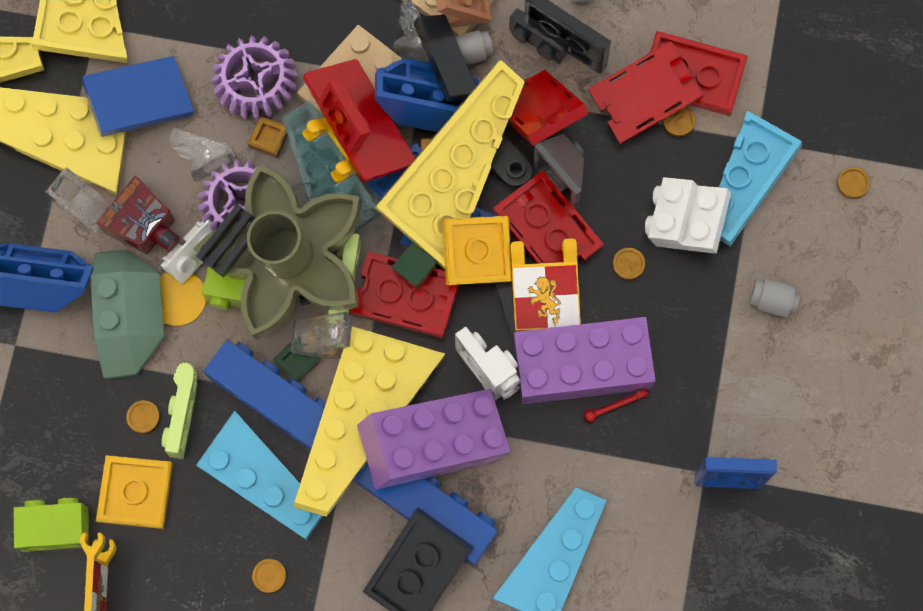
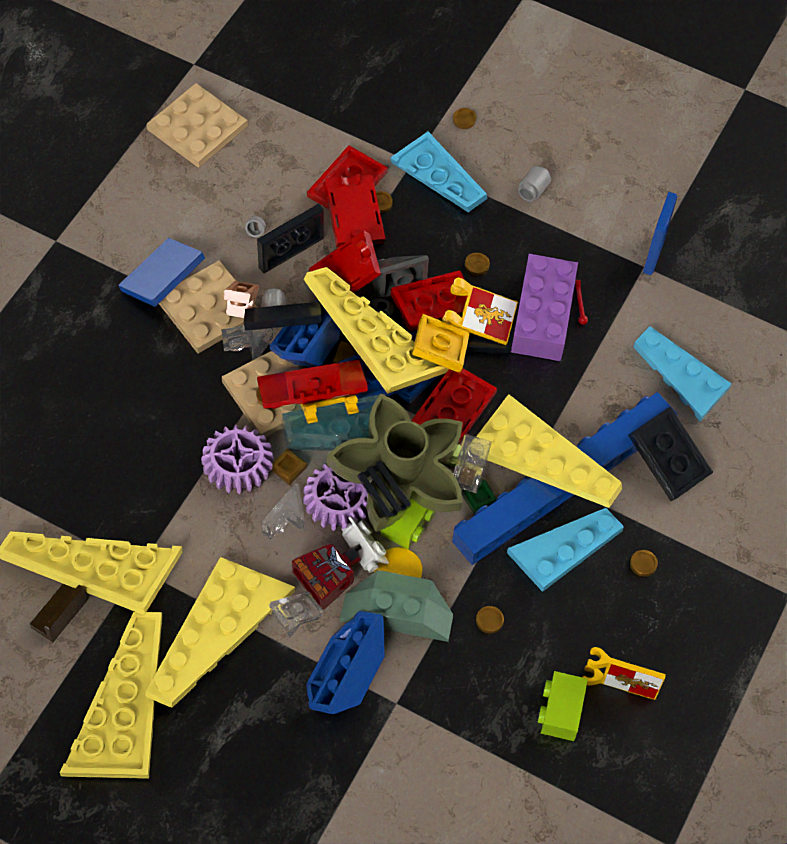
camera: 80 degrees left, 15 degrees down
(134, 492) = (550, 640): yellow tile -> none
(137, 96) = (219, 546): blue tile -> none
(181, 409) = (497, 585): yellowish green hinge -> none
(415, 265) = (437, 388): dark green tile -> none
(432, 438) = (580, 408): medium lavender brick -> none
(492, 368) = (532, 364): white plate -> none
(546, 41) = (281, 262): black plate -> none
(687, 215) = (458, 212): white plate -> none

